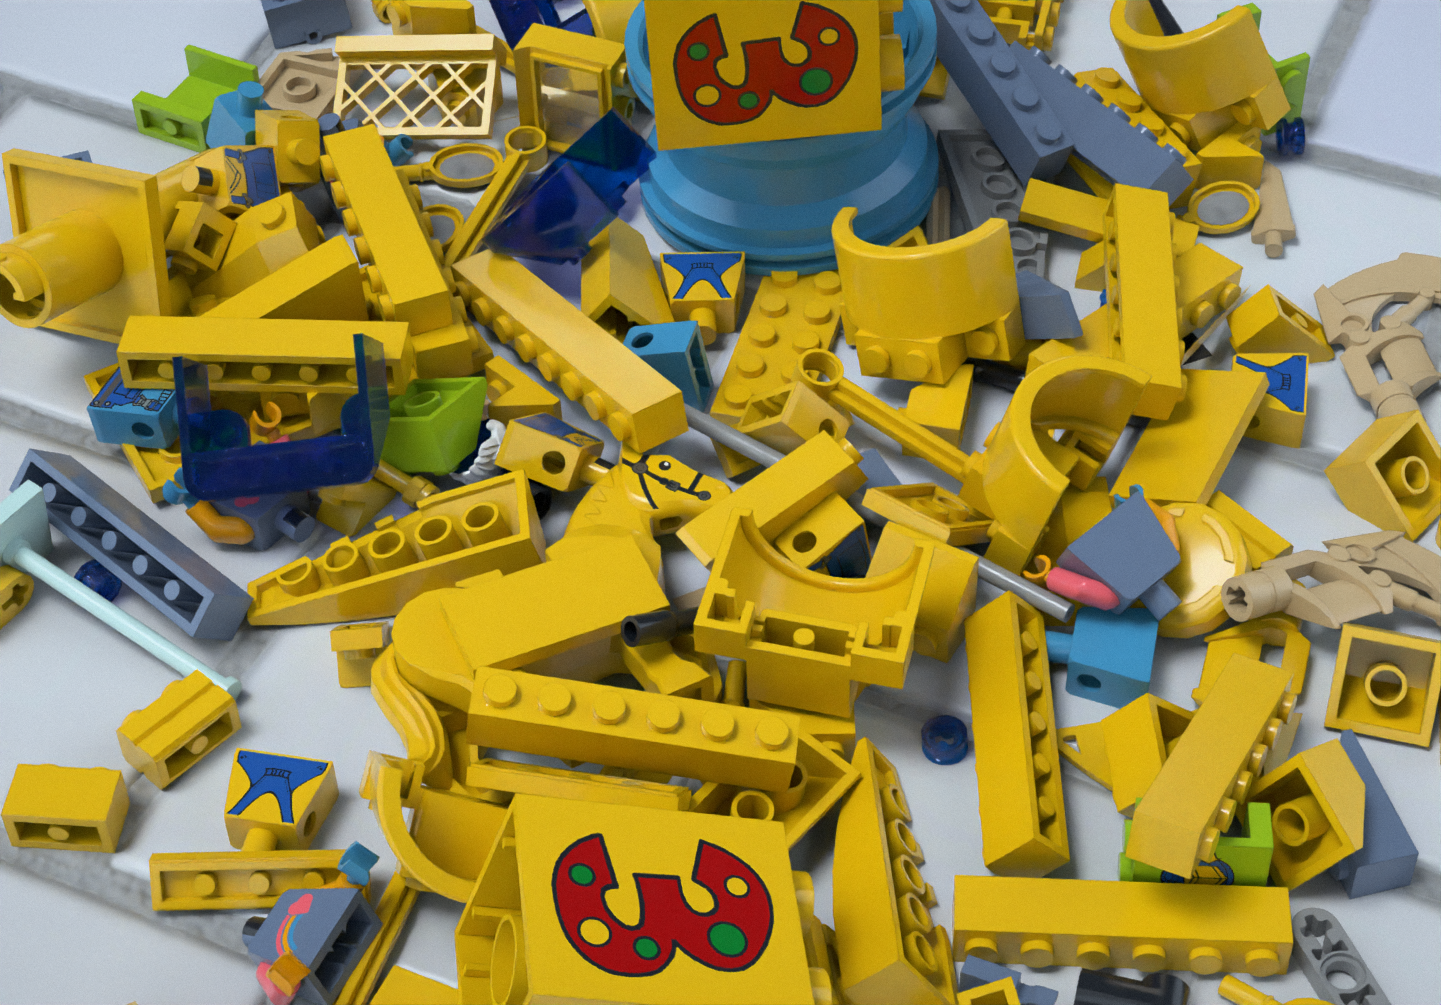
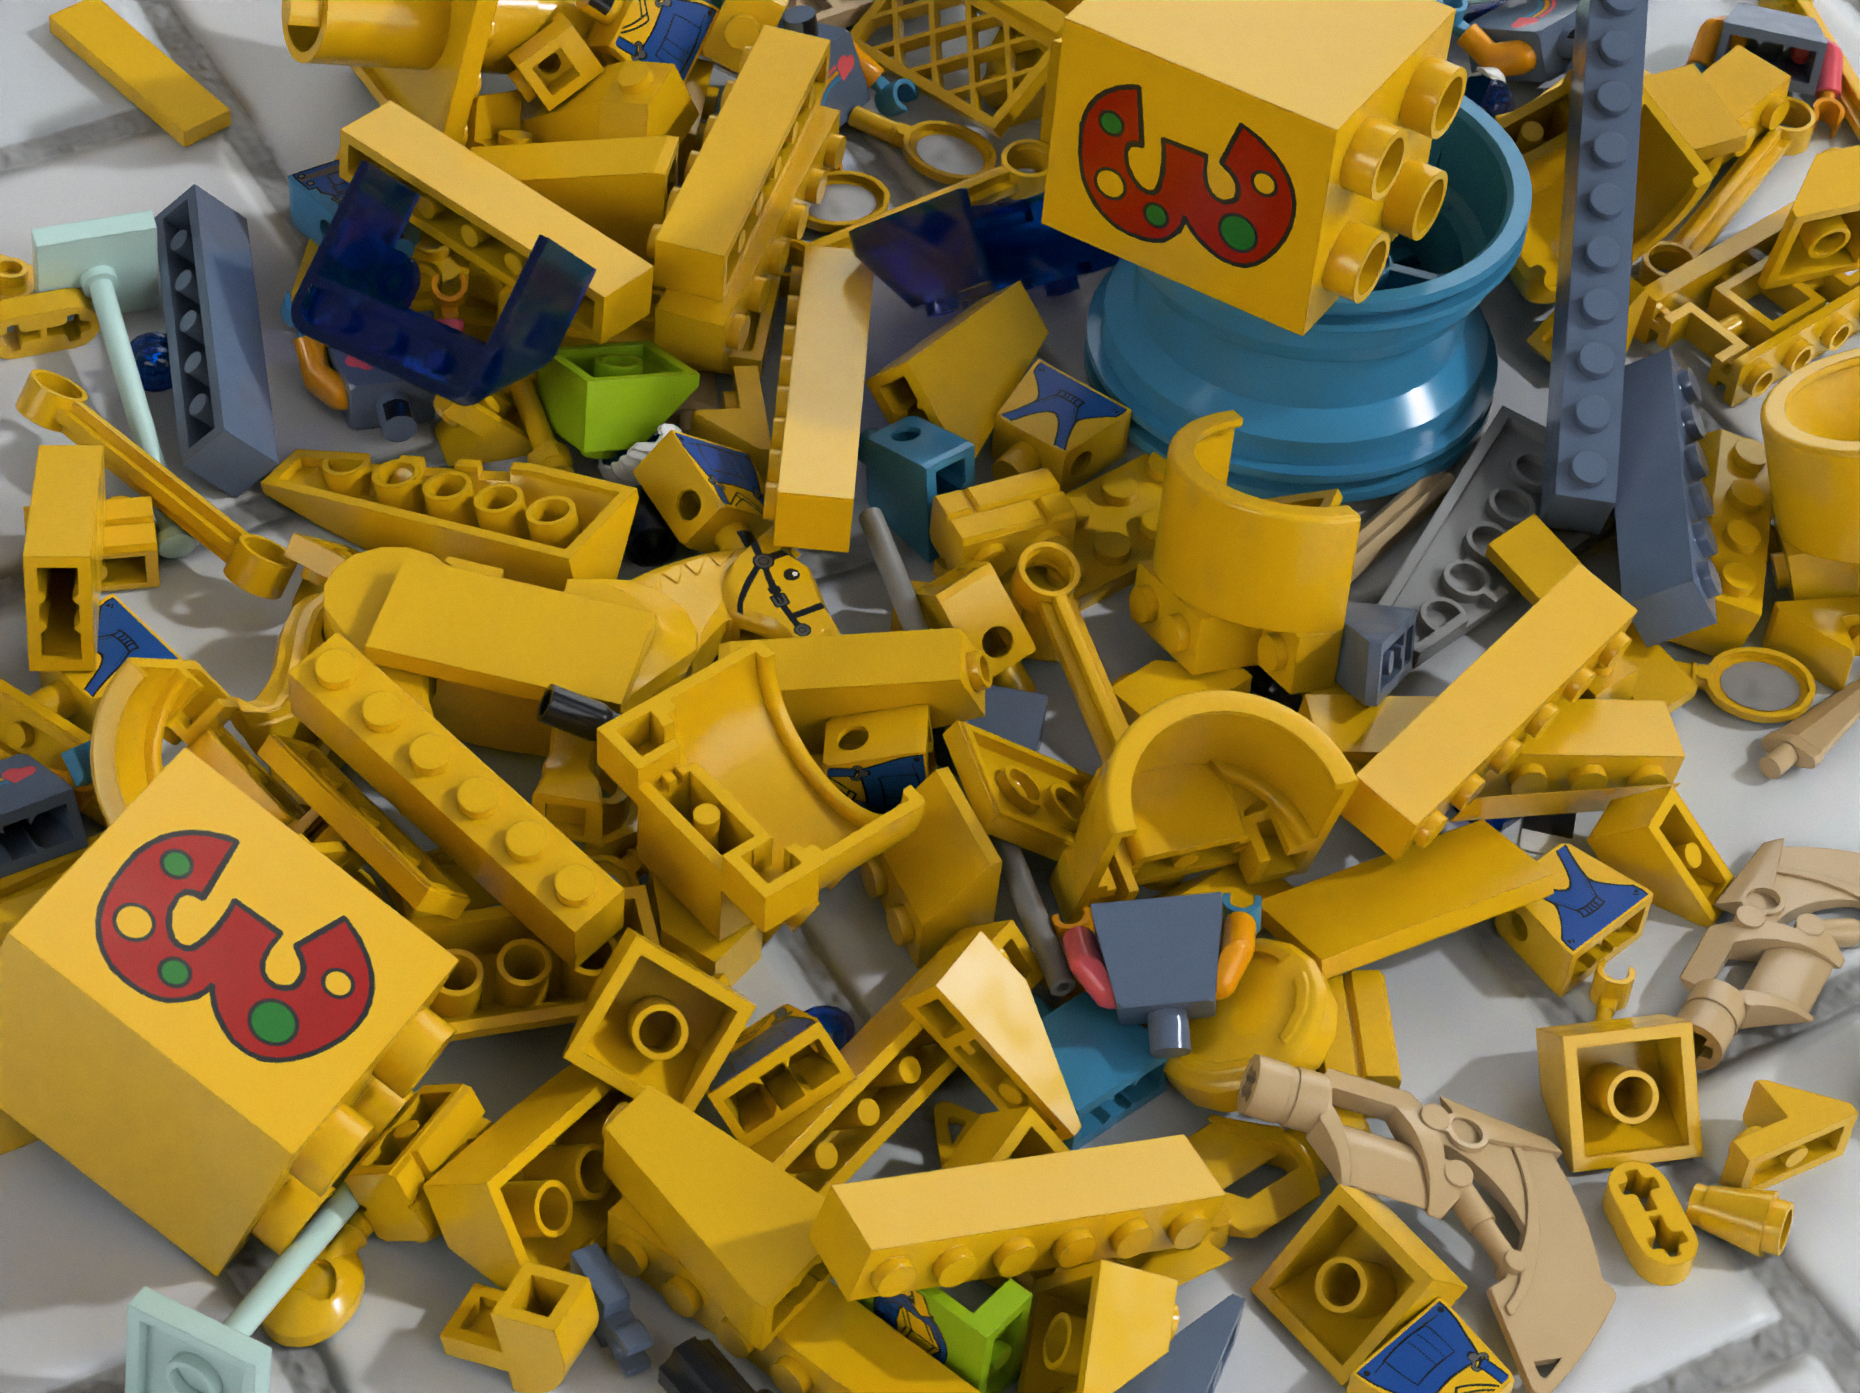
camera: 30 degrees right, 0 degrees up
(198, 739) = (65, 557): none -> yellow slope
(300, 669) = (250, 559): none -> yellow piece
(744, 362) = (1001, 520): none -> yellow brick
(886, 790) = (656, 1023): none -> yellow slope
(961, 774) = (776, 1074): none -> yellow torso
(1034, 880) = (718, 1210): none -> yellow slope
(1066, 663) = (992, 1029): none -> yellow slope
(1326, 428) = (1610, 993): none -> yellow hand

